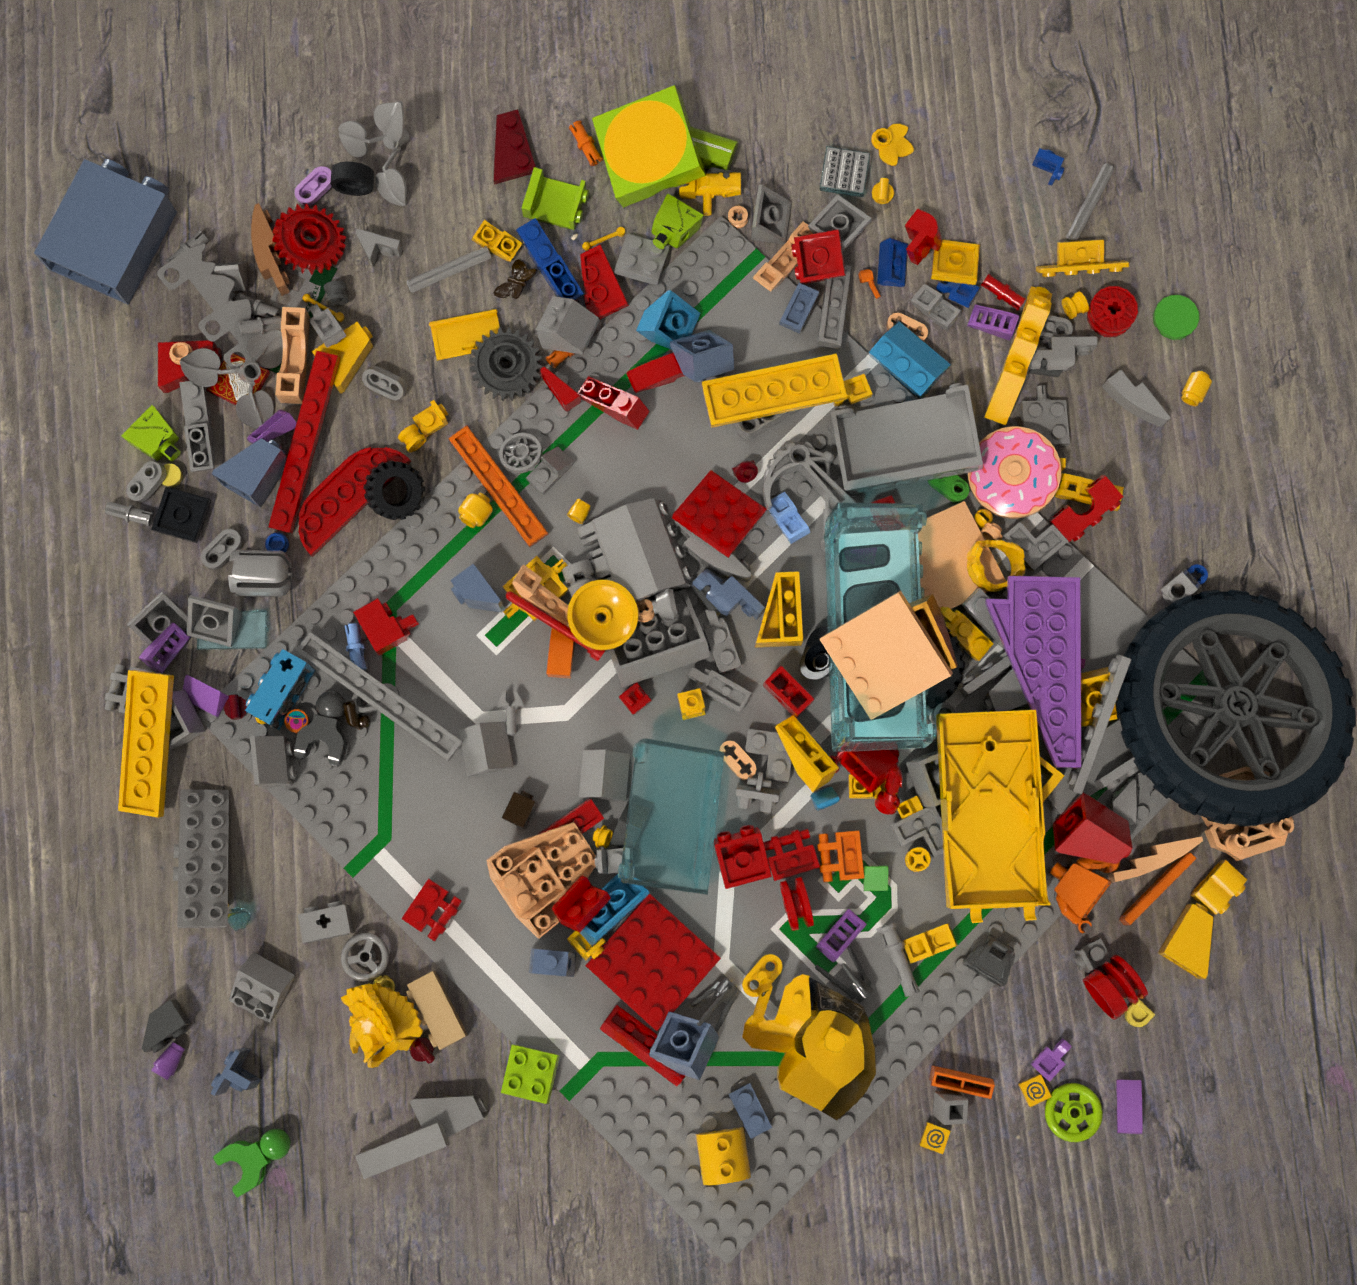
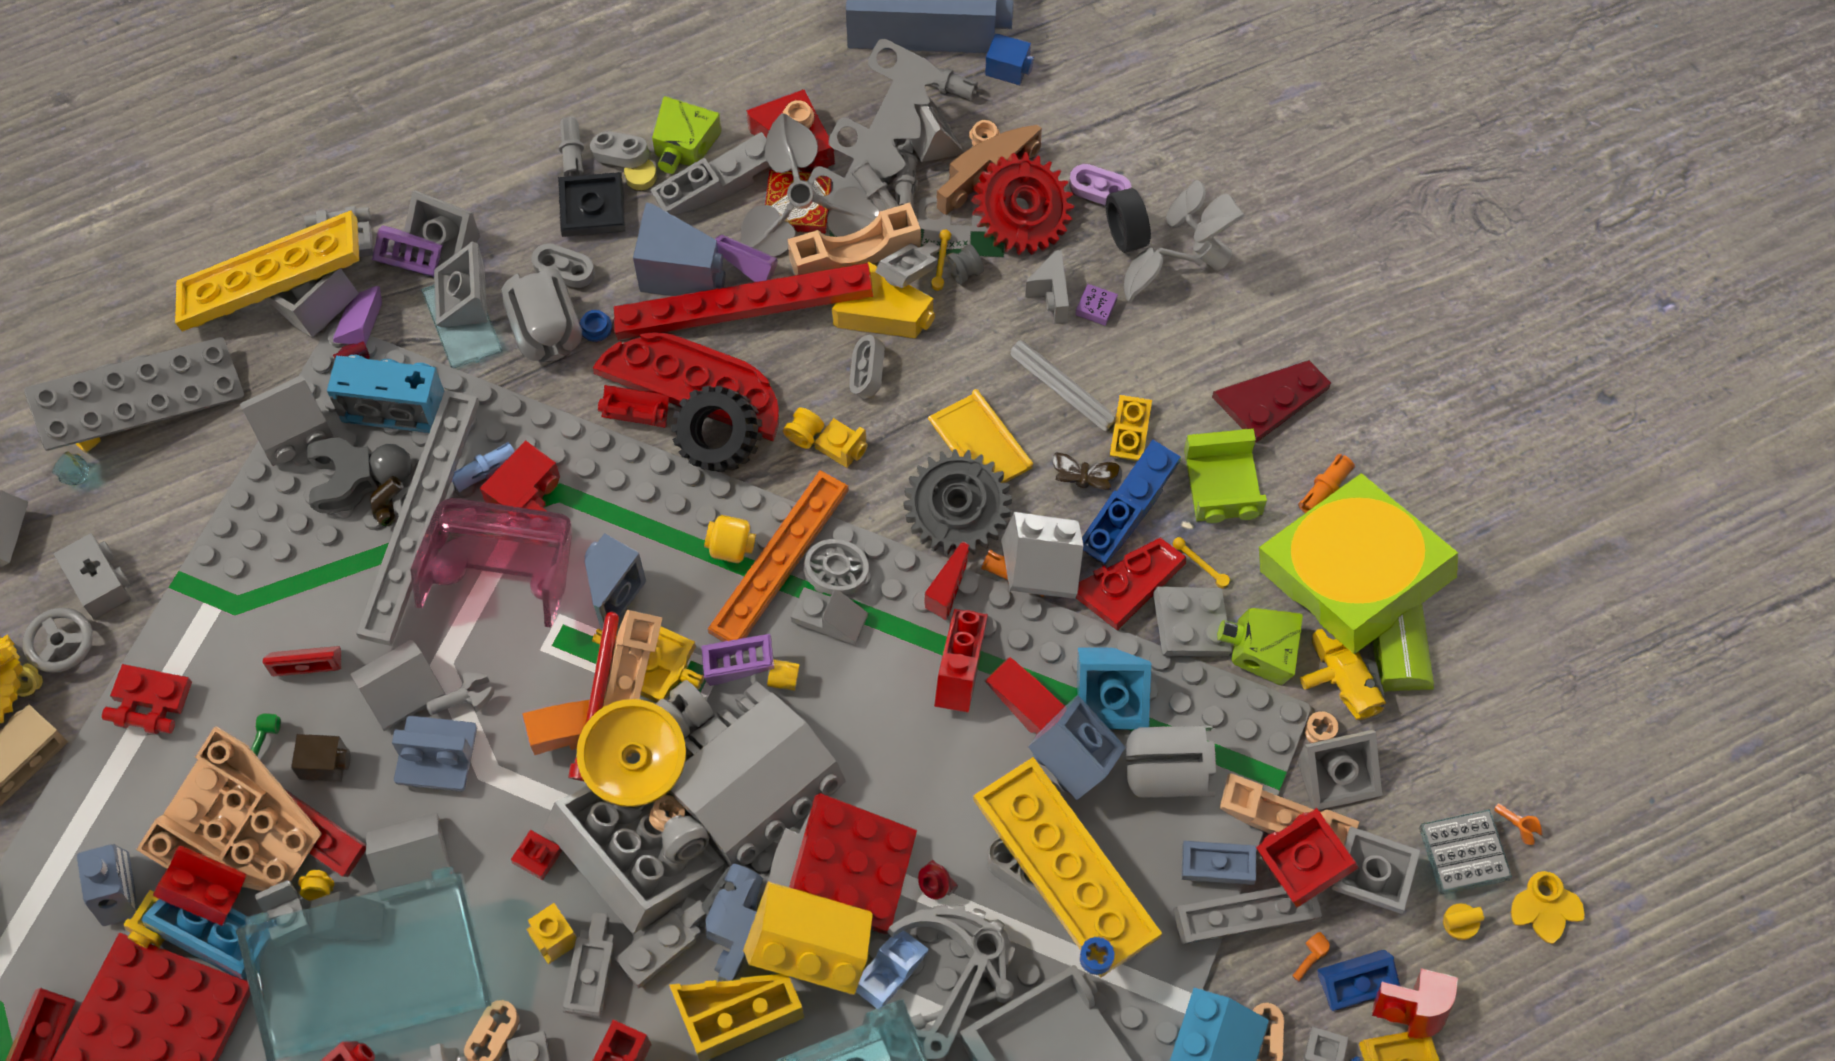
camera: 70 degrees right, 15 degrees down
(191, 203) = (1008, 59): none -> blue brick
(236, 242) = (982, 128): none -> light nougat plate
(296, 720) = (359, 433): tile -> none
(349, 538) = (634, 406): none -> red hinge
(399, 225) = (1096, 304): none -> medium lavender tile
(419, 649) = (498, 541): none -> clear pink windscreen
(445, 802) = (303, 661): none -> red slope
(481, 838) = (265, 724): none -> green hand
(544, 738) = (434, 753): none -> sand blue bracket
(551, 530) = (724, 650): none -> medium lavender slope
(731, 305) = (1170, 744): none -> light grey cylinder
(760, 552) = (809, 938): none -> yellow slope
(832, 399) = (1100, 945): none -> blue bush
(841, 132) = (1526, 824): none -> orange hand
(856, 390) = (1128, 992): yellow plate -> none

